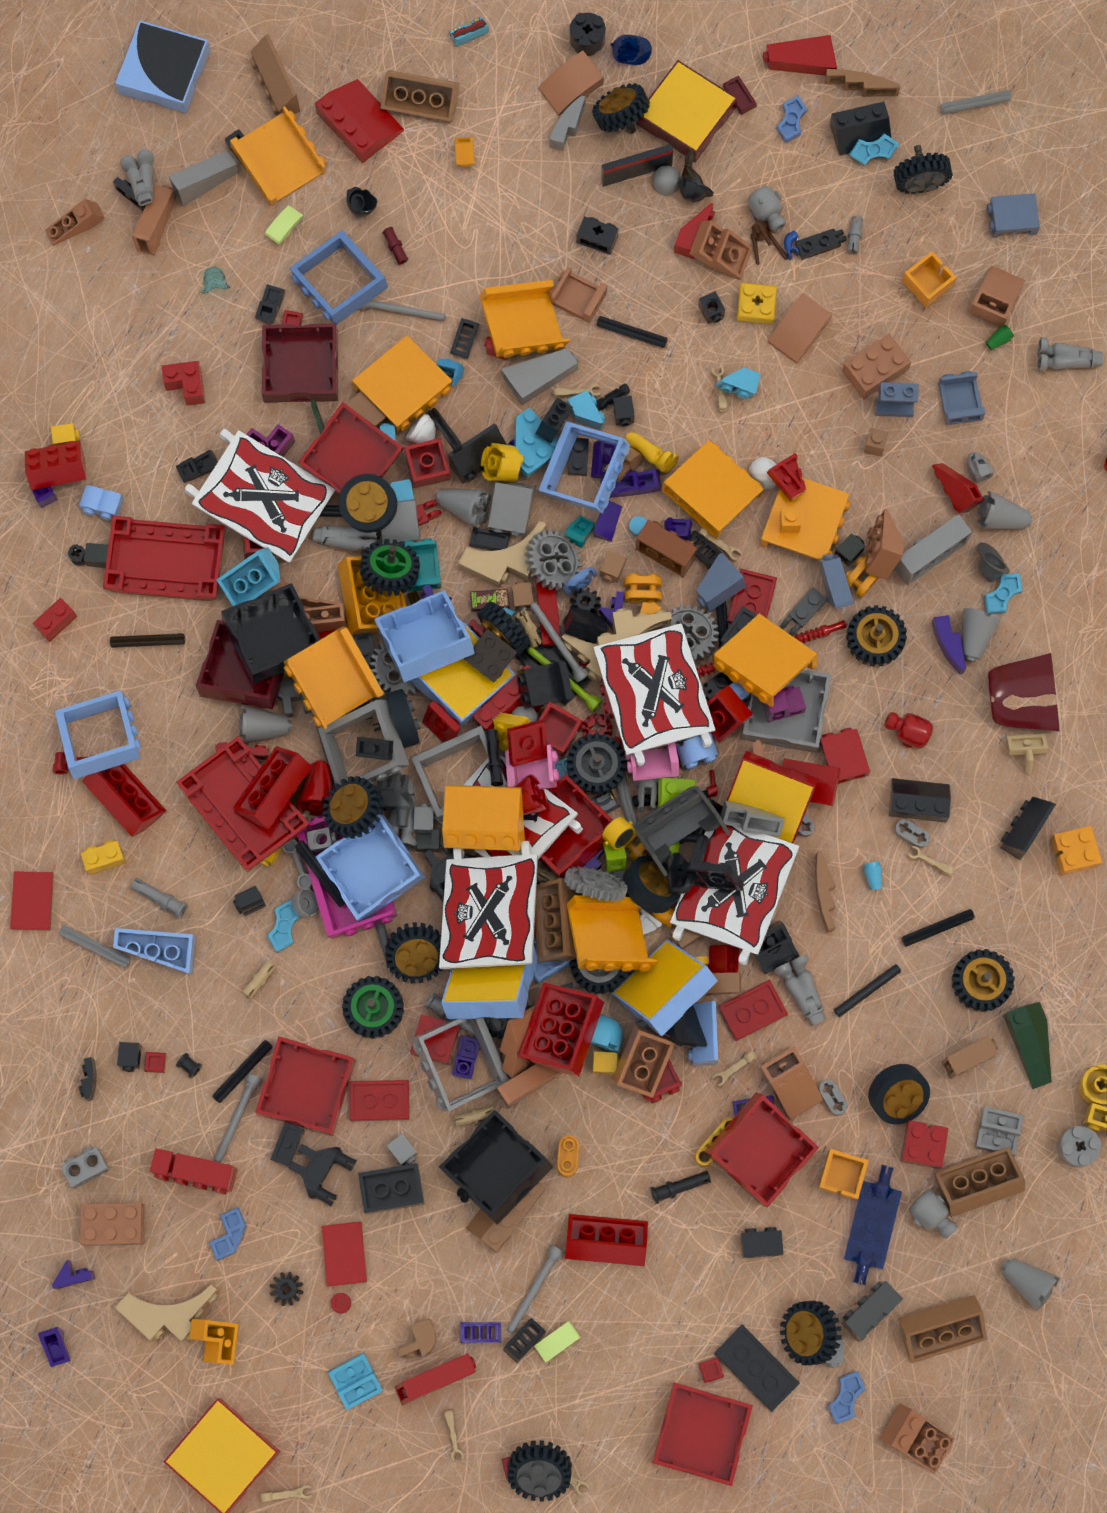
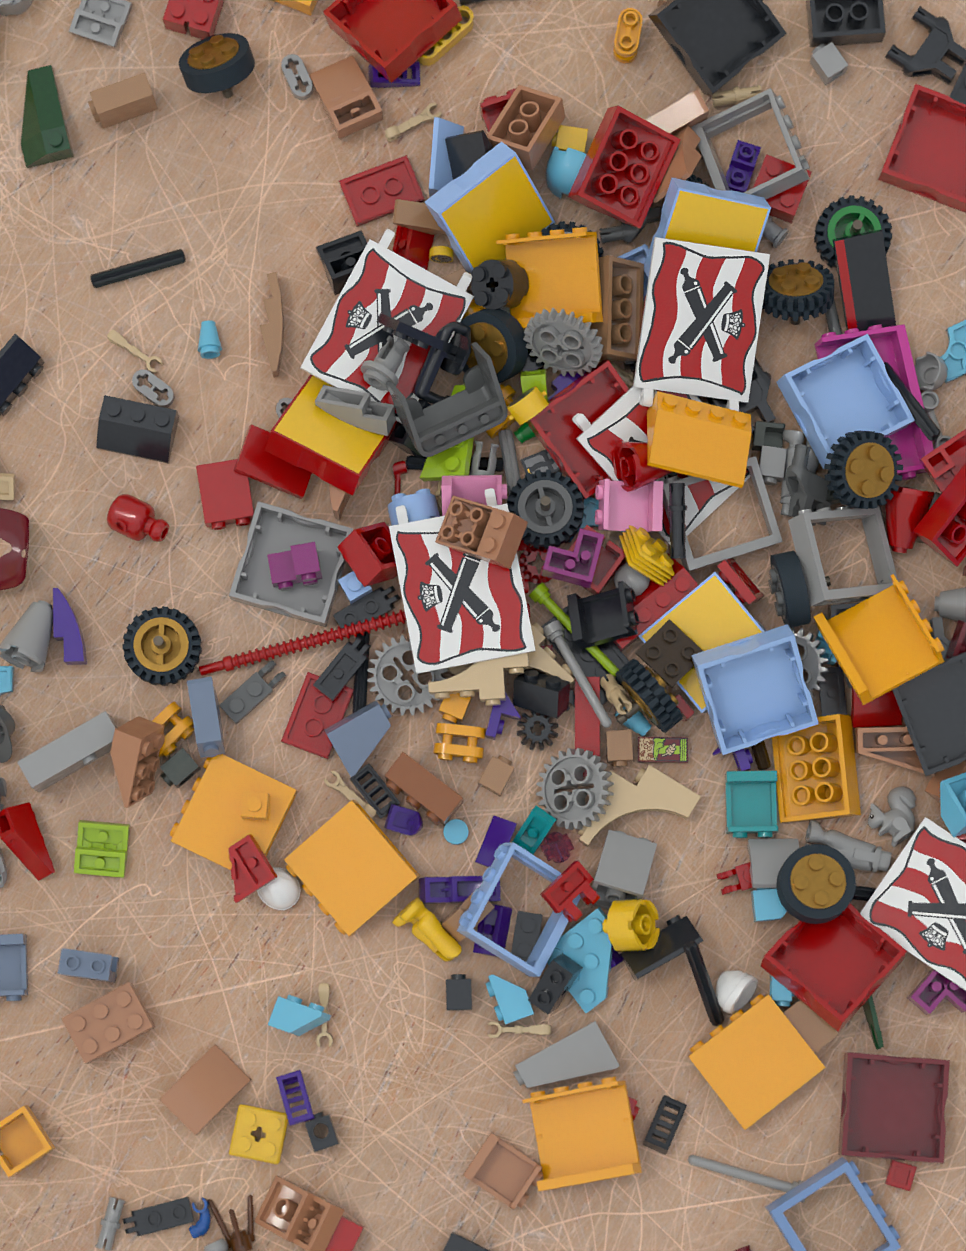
camera: 175 degrees left, 5 degrees up
(270, 304) = (929, 1202): black slope -> none
(308, 564) = (899, 819): none -> light grey animal
(315, 836) = (913, 443): light grey brick -> none
(361, 966) = (864, 280): none -> black tile
(374, 748) = (831, 539): black plate -> none
(379, 1100) = (852, 127): red tile -> none
(389, 567) = (793, 793): wheel -> none
(427, 463) = (731, 942): red brick -> none
(451, 369) = (691, 1081): dark azure plate -> none
(465, 504) = (684, 880): light grey cone -> none
(489, 539) = (657, 831): black tile -> none
(527, 743) = (633, 531): red plate -> none
(551, 484) = (567, 887): none -> red plate
(561, 519) = (557, 847): none -> clear pink gear
(568, 713) = (575, 566): none -> magenta brick
(579, 581) = (542, 755): medium blue tile -> none
(608, 399) = (470, 1018): black axle -> none
(632, 332) = (435, 1110): black axle -> none
(643, 727) = (482, 531): none -> nougat slope
(651, 931) = (499, 284): none -> black brick
(734, 850) = (383, 368): none -> light grey piece
(745, 339) = (289, 1079): none -> dark purple slope
(763, 658) = (313, 616): light orange panel -> none
(802, 988) = (317, 207): light grey piece -> none
(867, 990) = (237, 200): black piece -> none
(876, 442) = (124, 914): medium nougat brick -> none
(900, 489) = (101, 848): none -> lime slope
(983, 980) = (92, 194): wheel -> none

